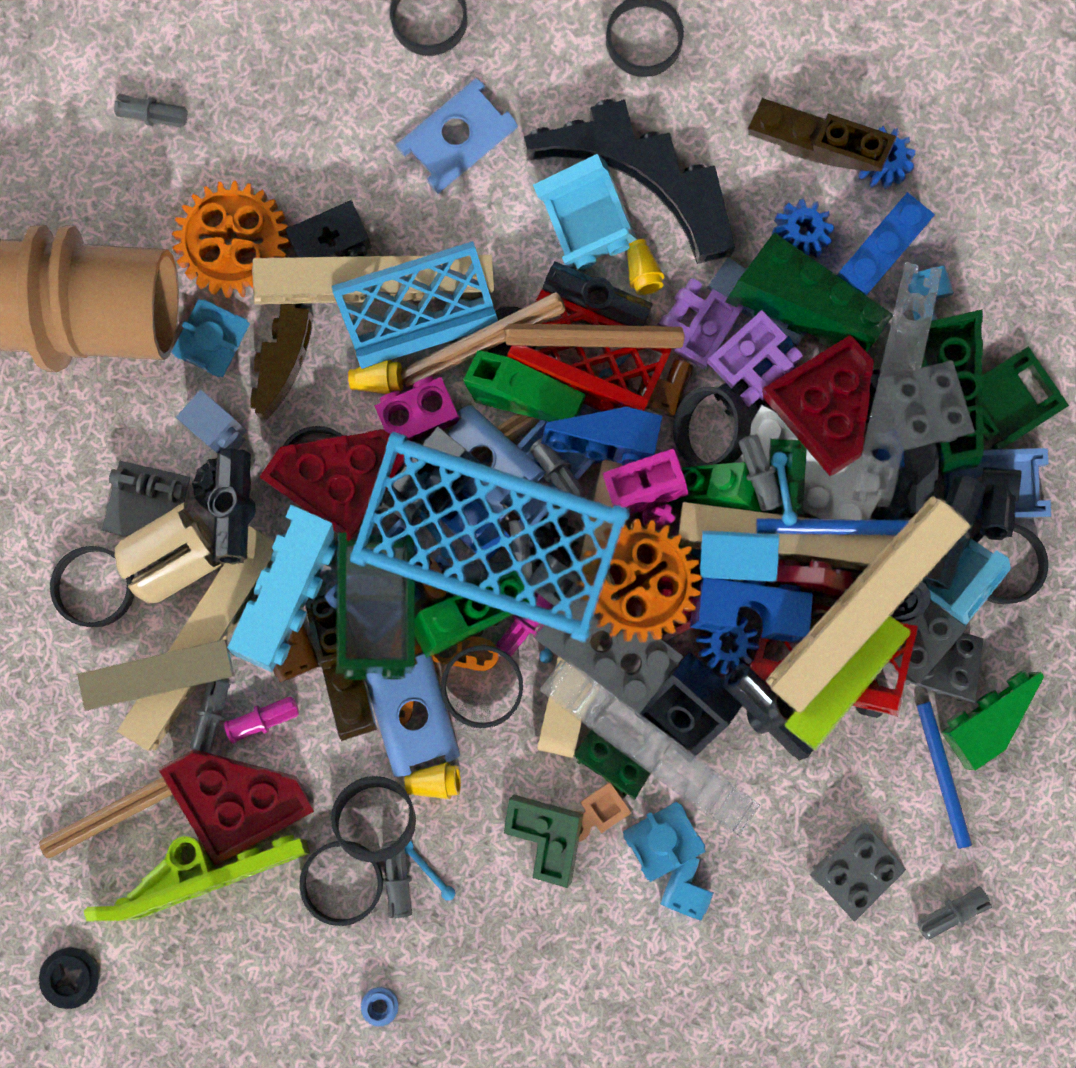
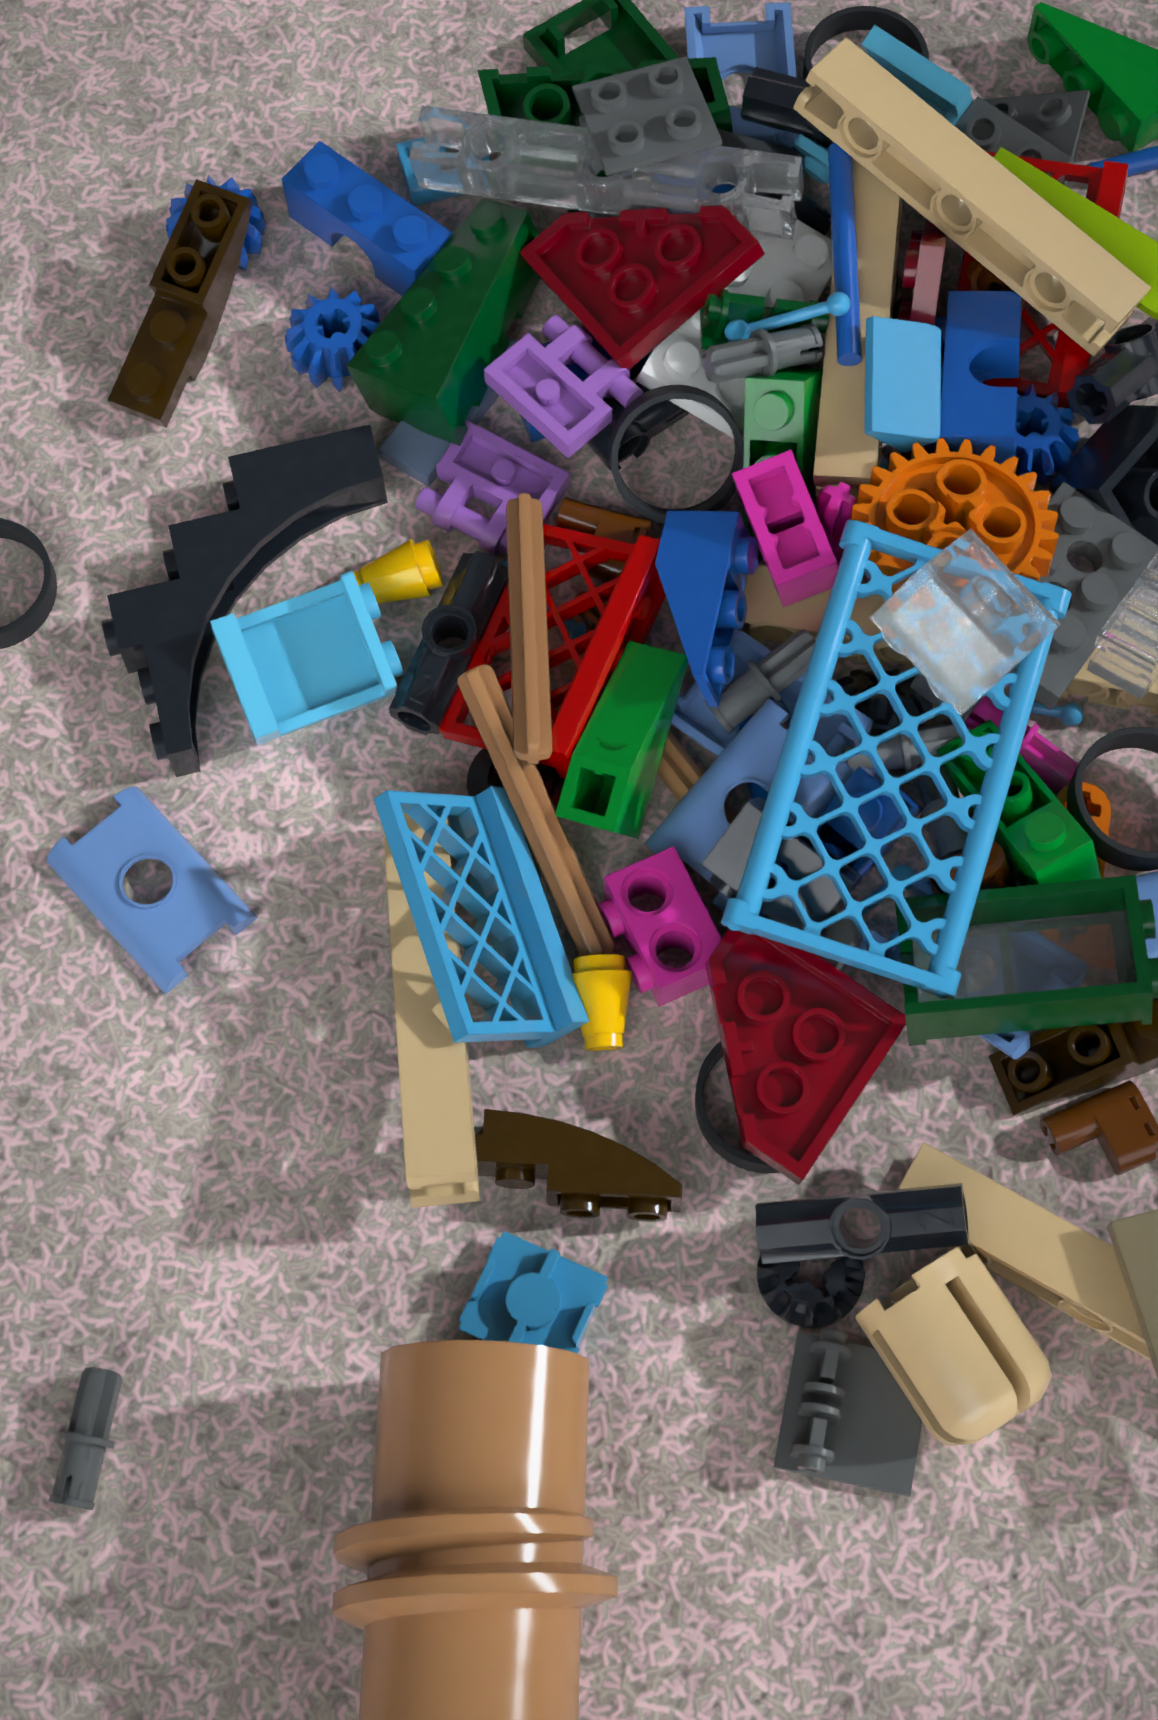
camera: 85 degrees left, 15 degrees down
(55, 593) = (1087, 1481): black tyre -> none
(212, 423) = (708, 1270): sand blue brick -> none
(236, 208) = (284, 1269): orange gear -> none
(284, 590) = (1006, 1127): medium azure wedge -> none
(340, 223) = (324, 1058): black brick -> none
(556, 573) = (964, 621): none -> clear slope
(999, 502) = (783, 53): black piece -> none

